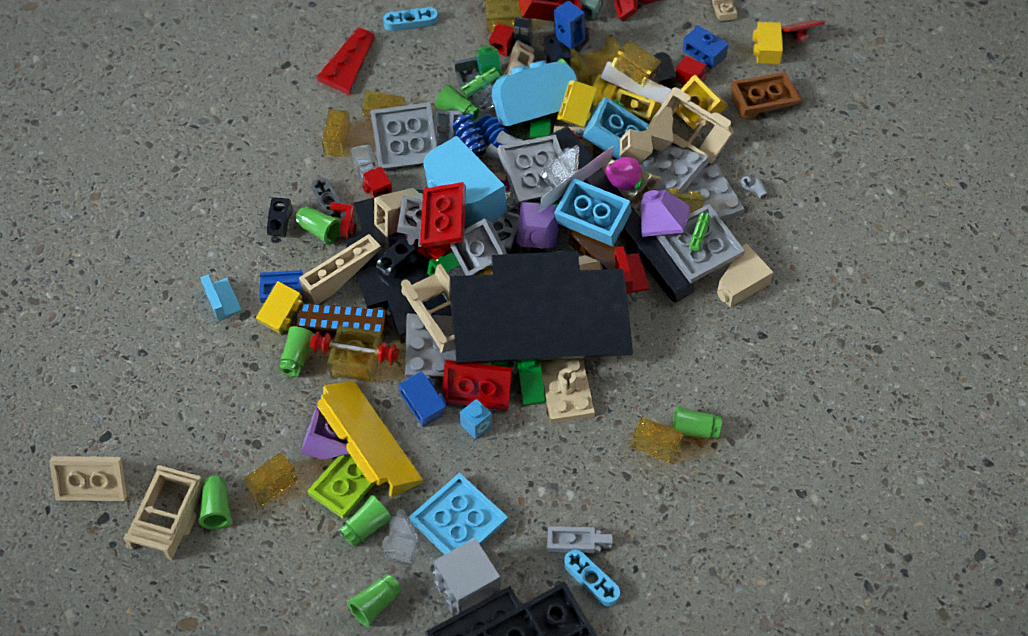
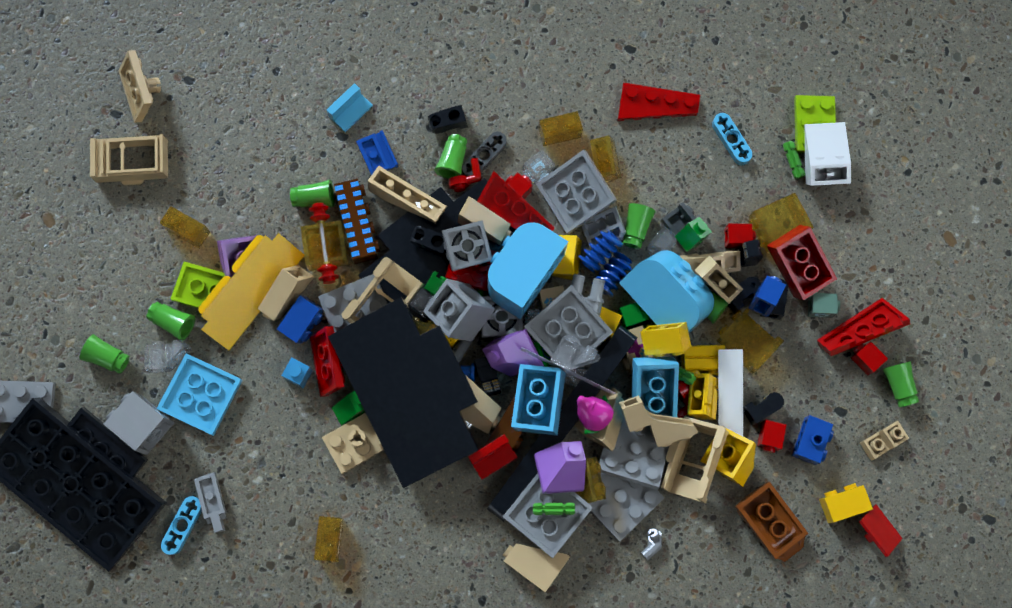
camera: 65 degrees right, 20 degrees up
(215, 504) = (150, 193): bright green plant -> none
(279, 308) = (348, 162): yellow brick -> none
(387, 405) = (284, 292): none -> tan slope
(396, 181) = (508, 204): none -> red wing
(443, 215) = (465, 265): red plate -> none
(480, 82) = (663, 236): bright green pin -> none
(538, 50) = (719, 279): none -> tan brick
(636, 63) = (748, 378): clear yellow brick -> none
(696, 423) = (357, 568): bright green plant -> none

